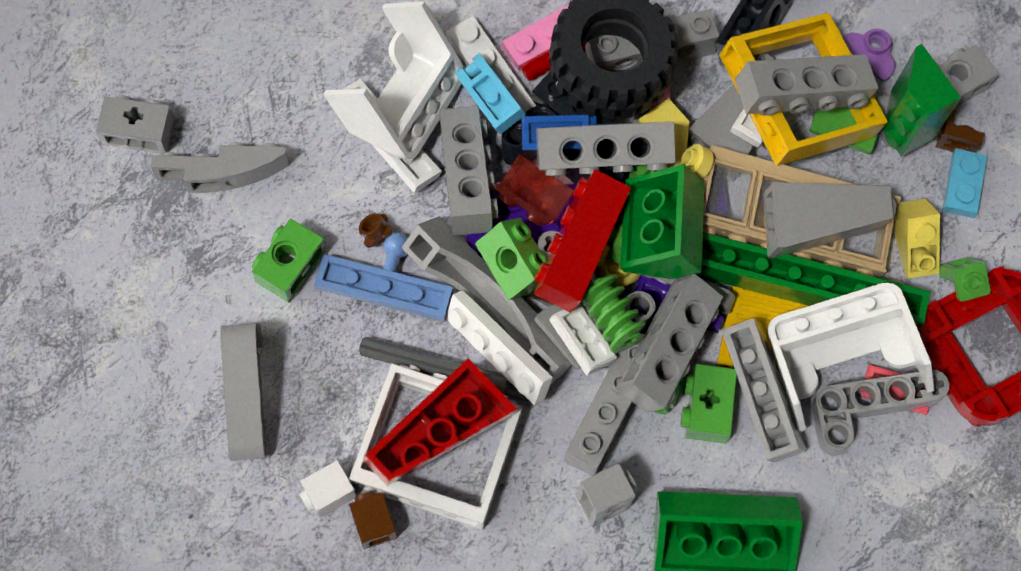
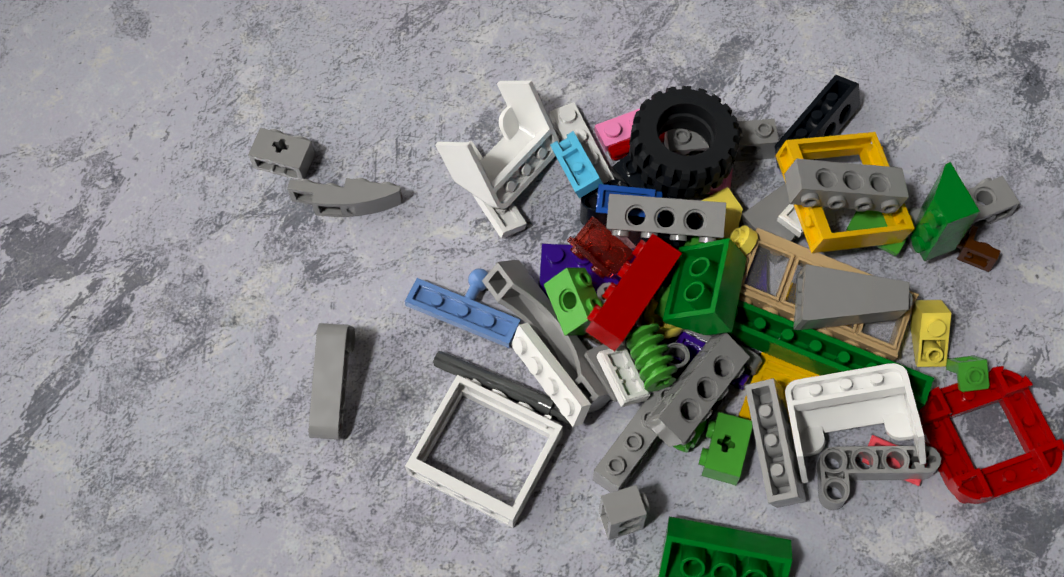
camera: 15 degrees right, 5 degrees down
(287, 278) = (384, 293): bright green brick -> none
(326, 489) = (385, 473): white brick -> none
(372, 519) = (419, 504): reddish brown brick -> none
(374, 229) = (463, 263): reddish brown plate -> none
(445, 419) = (491, 427): red wedge -> none
(464, 150) = (546, 225): light grey brick -> none
(879, 58) = (915, 179): medium lavender plate -> none
(964, 183) = (978, 292): medium azure plate -> none

